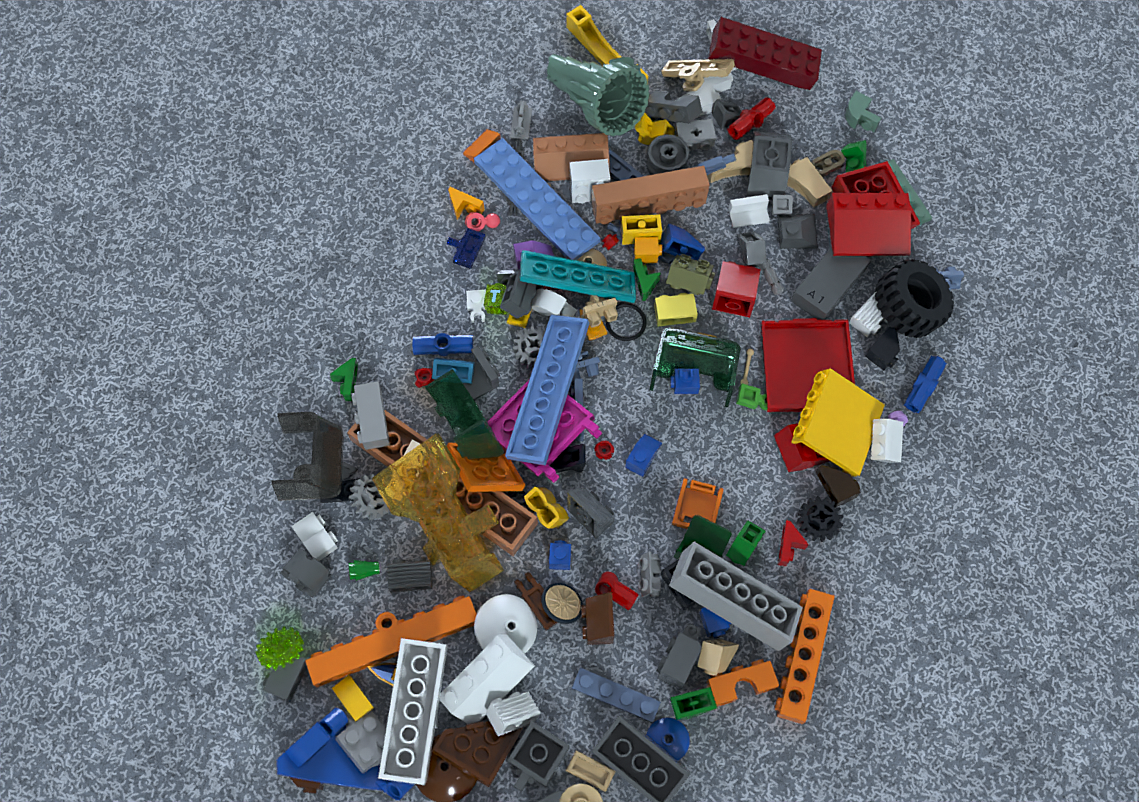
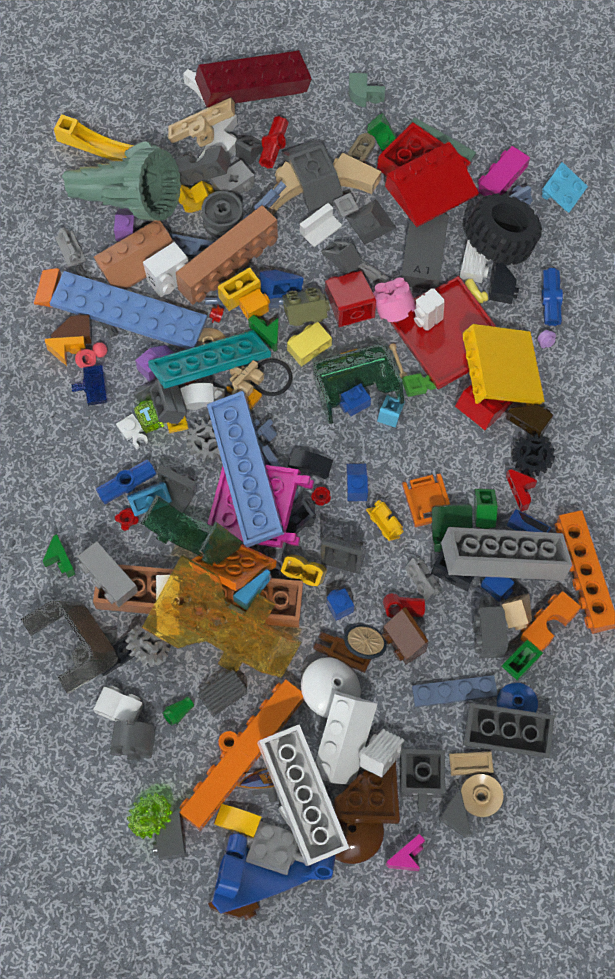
camera: 30 degrees left, 0 degrees up
(482, 189) = (75, 327): none -> reddish brown slope
(493, 497) = (246, 595): none -> dark azure slope
(577, 124) = (124, 224): none -> medium lavender slope
(612, 415) = (310, 462): none -> black slope
(647, 512) = (390, 527): none -> yellow hinge
(712, 408) = (390, 411): none -> medium azure slope
(774, 310) = (394, 300): none -> bright pink brick
(775, 579) = (522, 522): none -> blue slope
(799, 335) = (429, 309): none -> white brick
(857, 349) = (479, 296): none -> light yellow arm
(887, 440) = (549, 360): white brick -> none
(947, 248) = (504, 172): none -> dark pink brick
(997, 290) = (564, 187): none -> medium azure hinge

